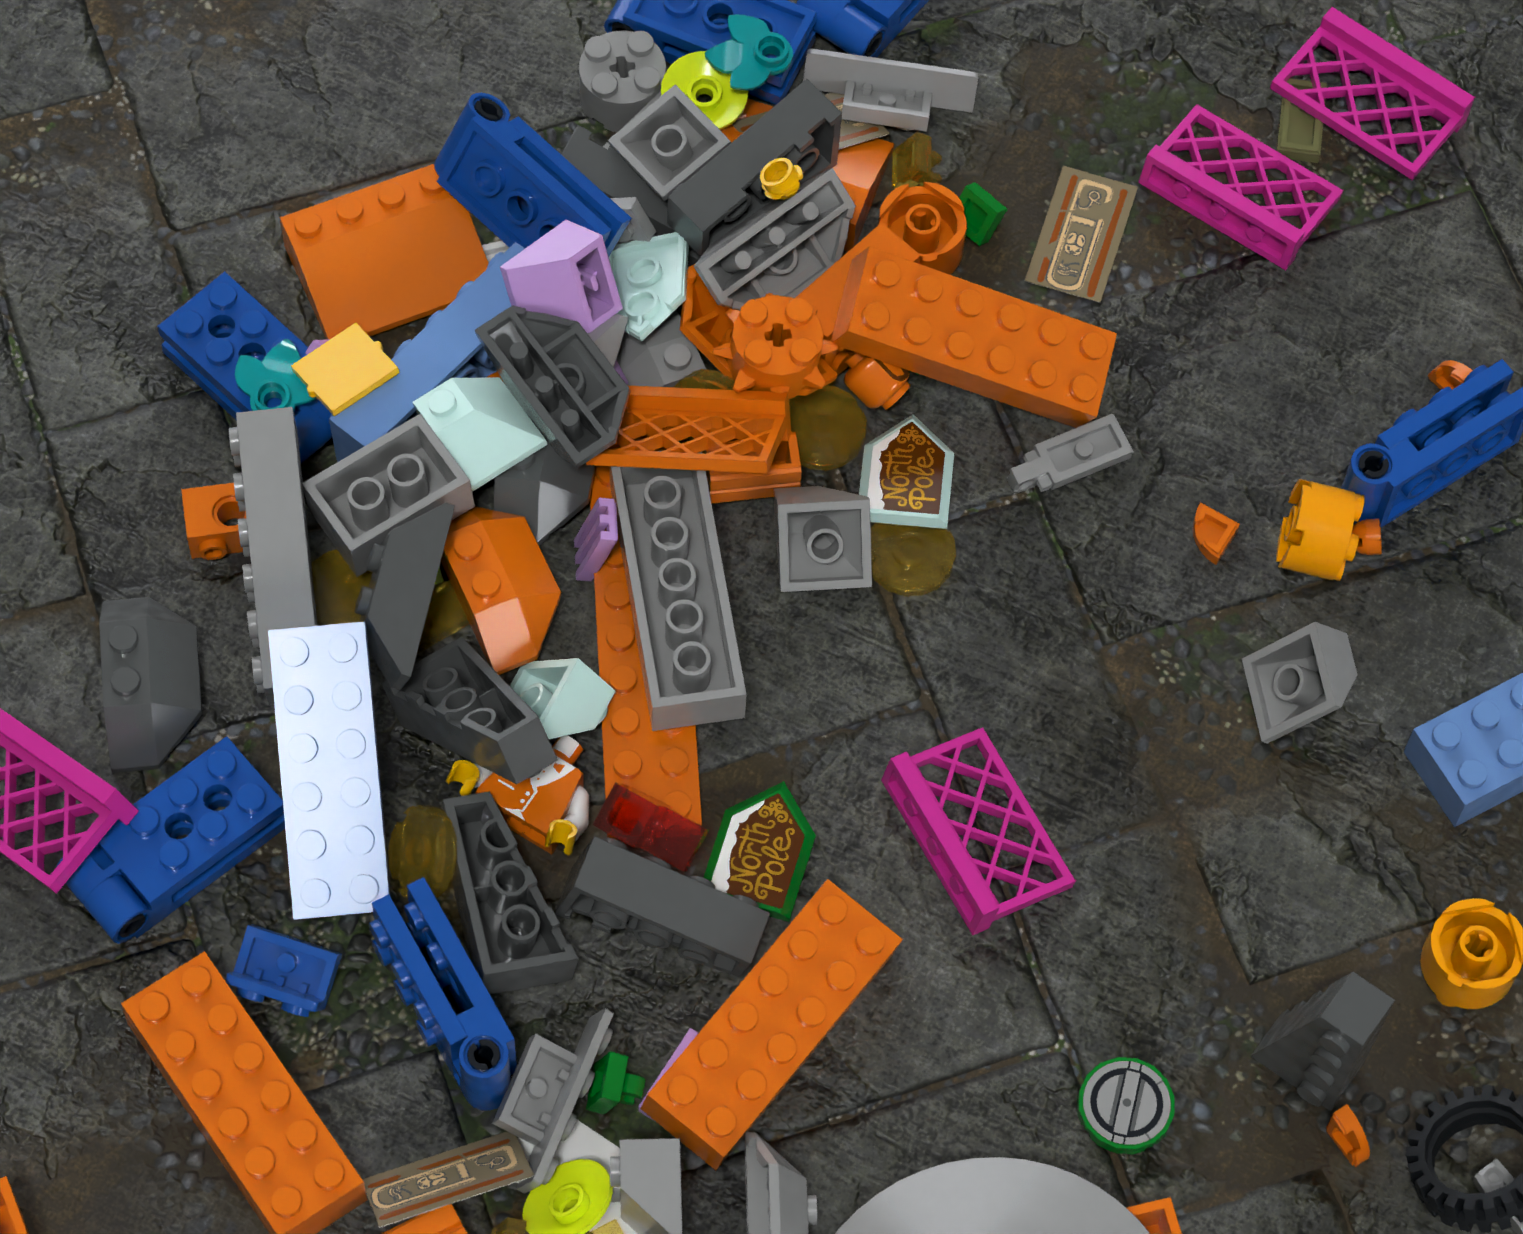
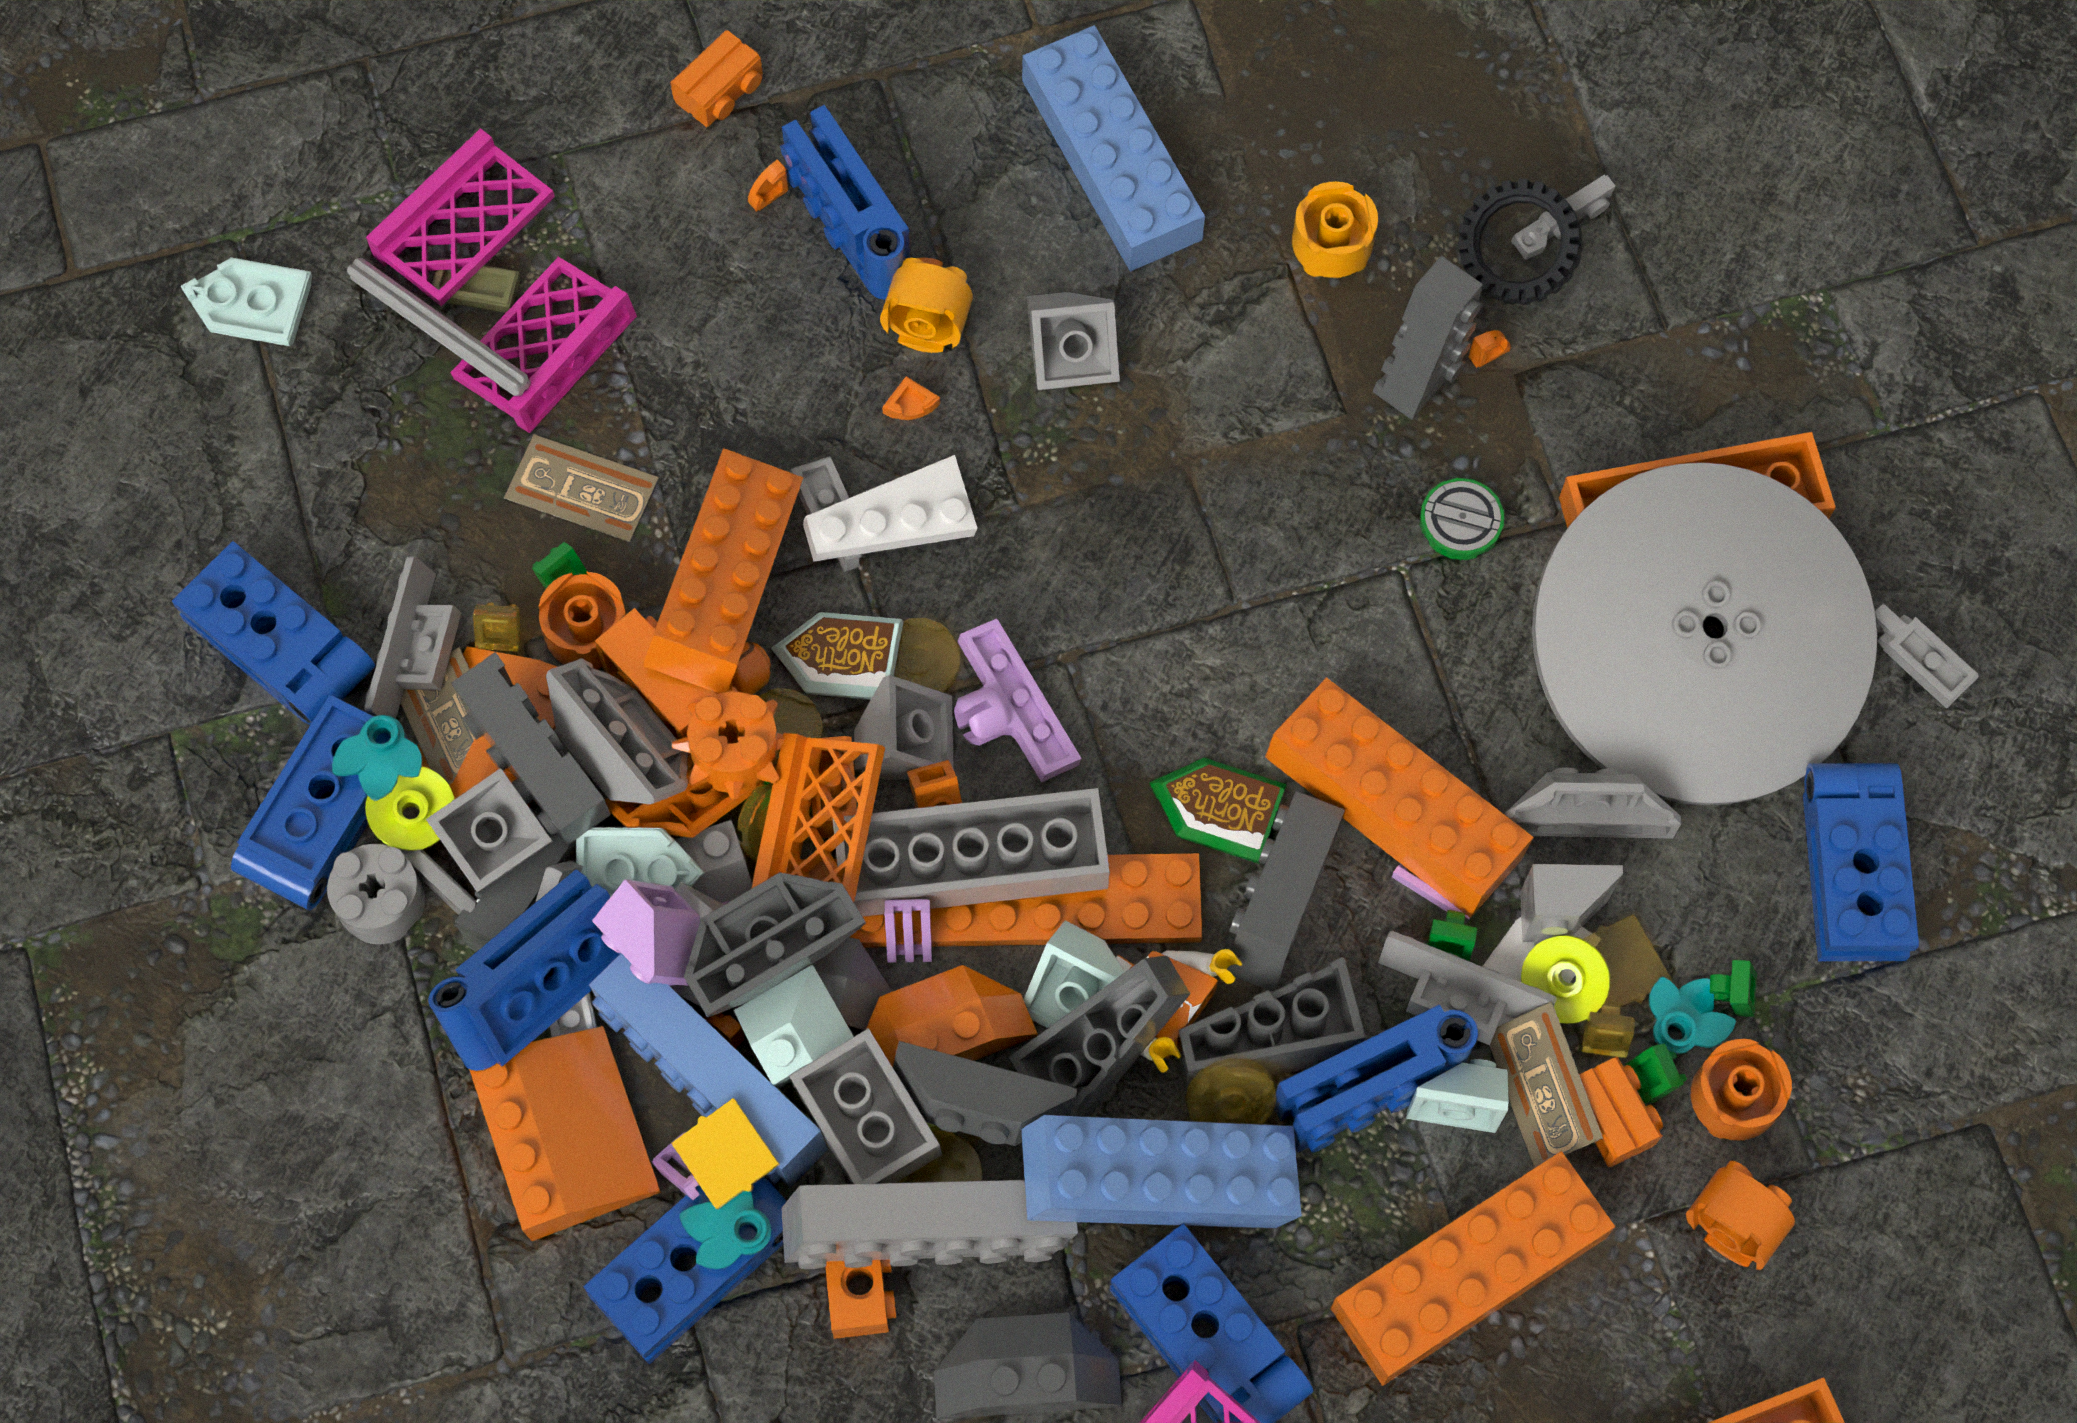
camera: 85 degrees left, 5 degrees up
(284, 970) = (1342, 1233): blue bracket -> none
(430, 1092) = (1464, 1097): none -> light aqua slope
(651, 826) = (1211, 891): clear red brick -> none
(743, 568) = (934, 785): none -> orange brick
(780, 179) = (551, 715): yellow plate -> none
(861, 637) = (1011, 704): none -> lavender plate
(940, 836) = (1223, 643): dark pink fence -> none
(1072, 522) = (901, 513): none -> white wing
(1239, 82) = (439, 327): none -> light grey axle

